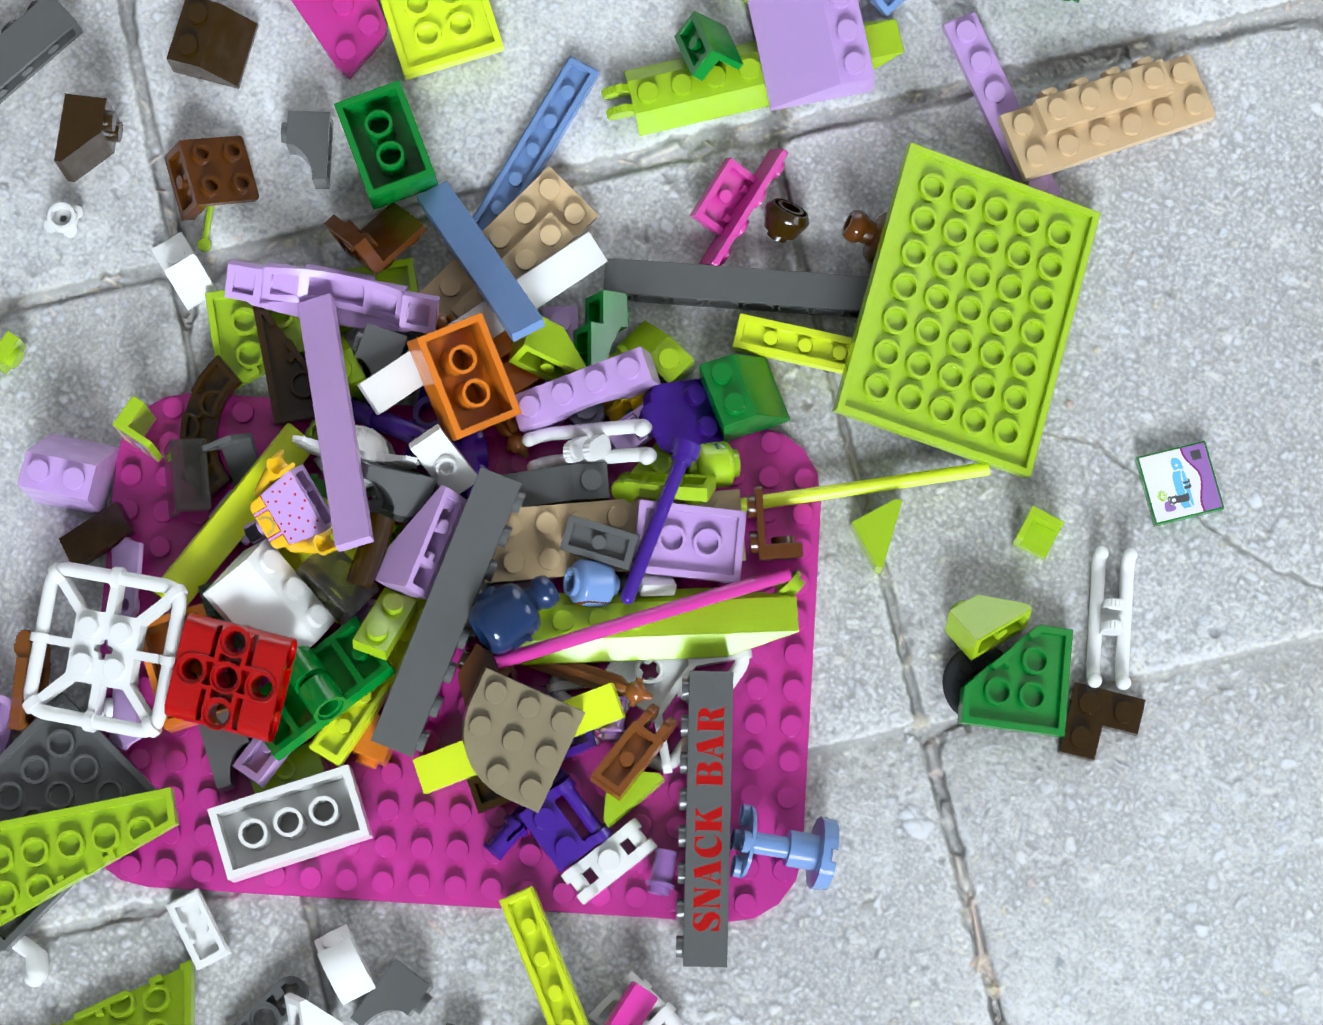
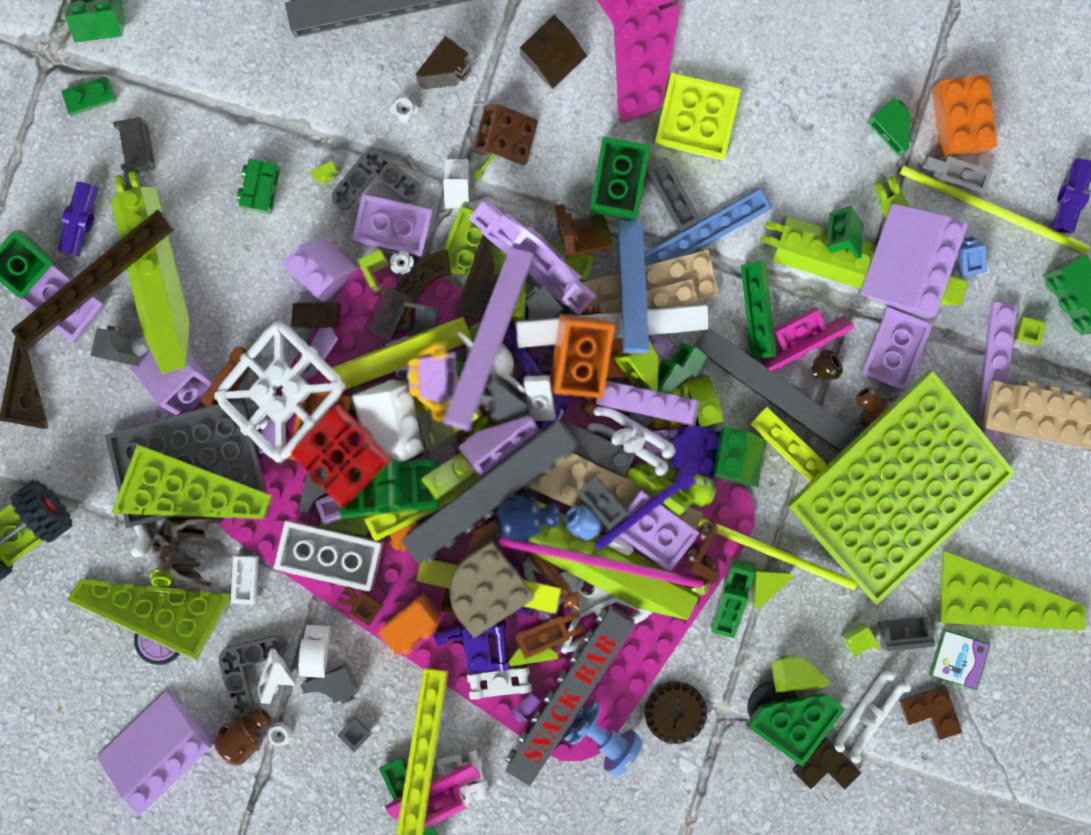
camera: 25 degrees right, 10 degrees up
(66, 321) = (370, 172): none -> dark grey beam
(68, 937) = (166, 548): none -> dark brown piece
(86, 990) = (160, 578): none -> lime plate
(136, 363) = (392, 225): none -> lavender plate
(170, 414) = (396, 258): none -> white plate
(311, 138) = (577, 147): dark grey arch -> none
(369, 556) = (456, 436): dark brown piece -> none
(375, 868) = (363, 607): none -> reddish brown plate
(447, 842) = (409, 624): none -> orange brick
(465, 127) = (672, 195): none -> dark grey plate
(657, 202) = (758, 310): none -> green plate
(844, 576) = (733, 597): none -> green slope
(849, 789) = (664, 700): none -> dark brown gear
(858, 150) = (896, 349): none -> lavender plate
(1010, 33) = (1030, 331): none -> lime plate
(1091, 491) = (906, 634): none -> dark grey hinge
(1166, 385) = (988, 597): none -> lime wing
(1188, 559) = (934, 705): none -> reddish brown plate

